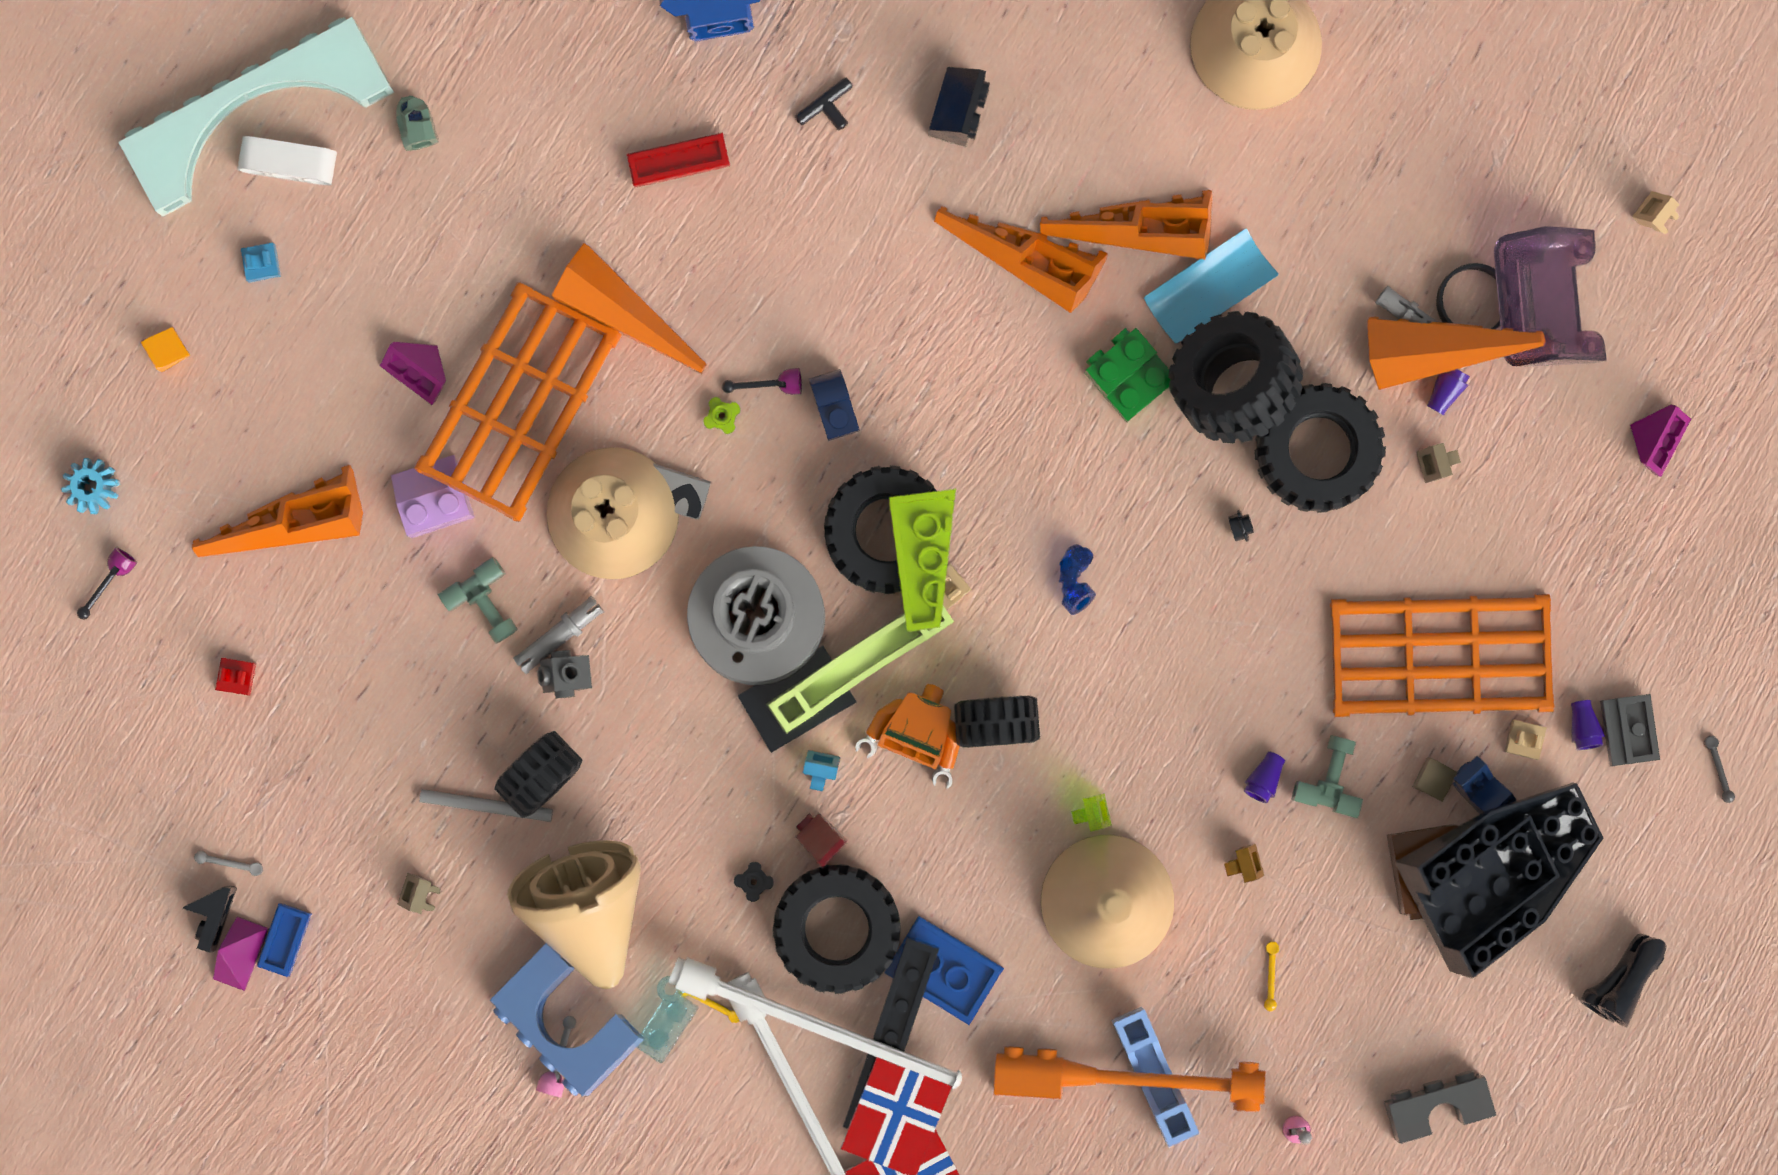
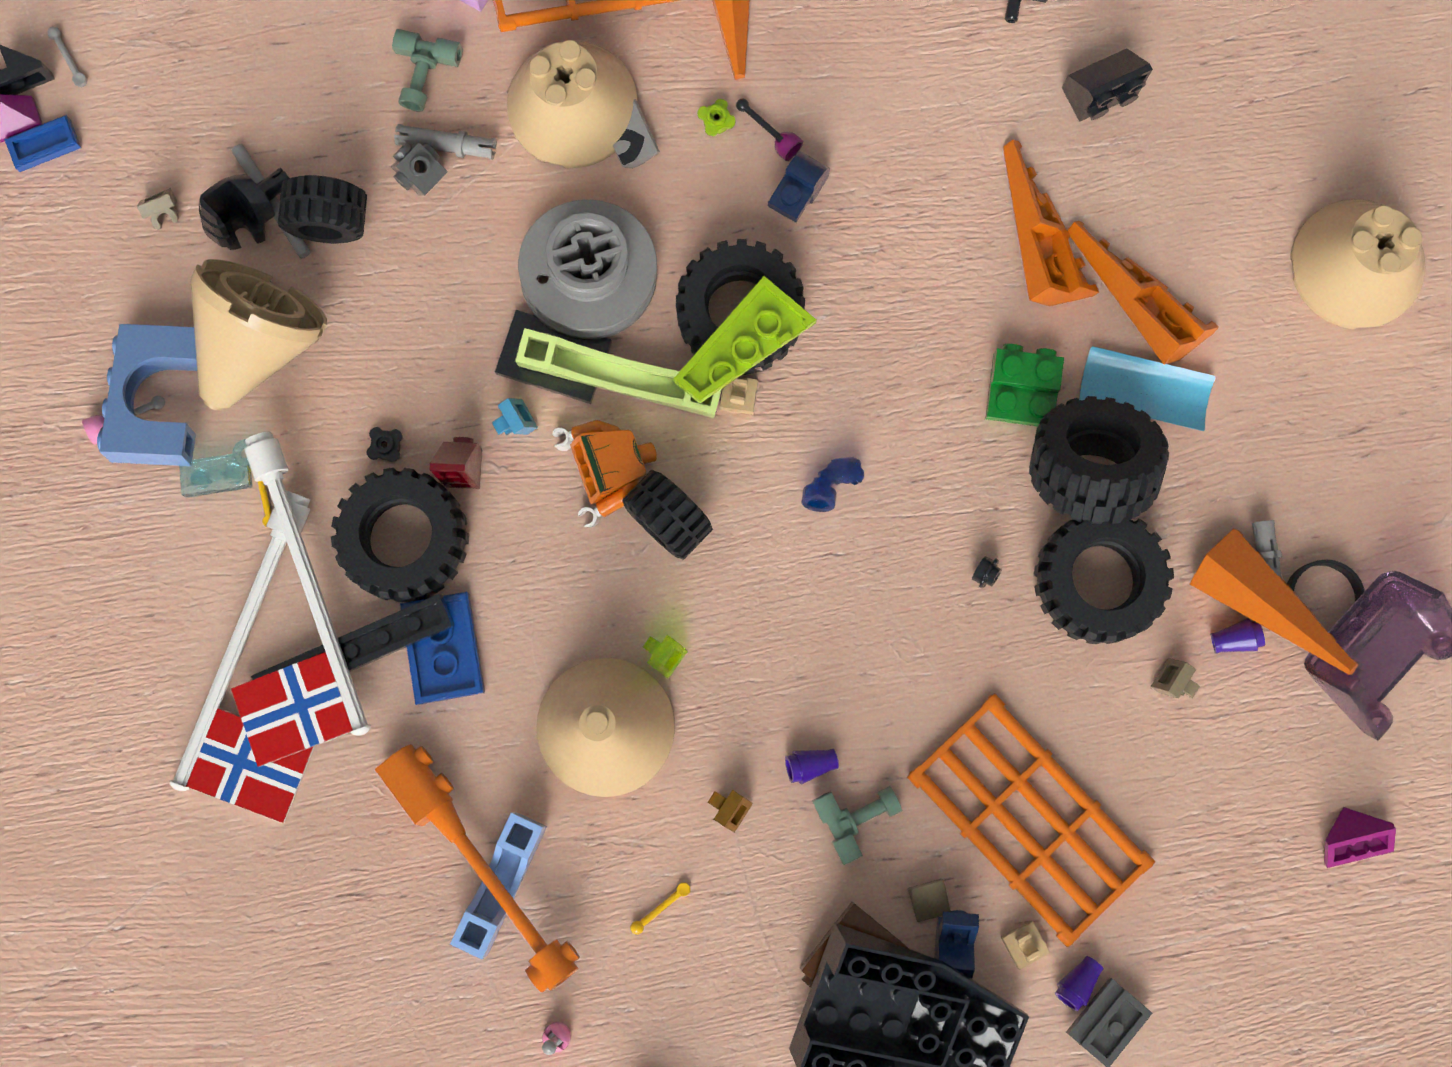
camera: 50 degrees right, 5 degrees down
(473, 829) = (239, 204): none -> black piece

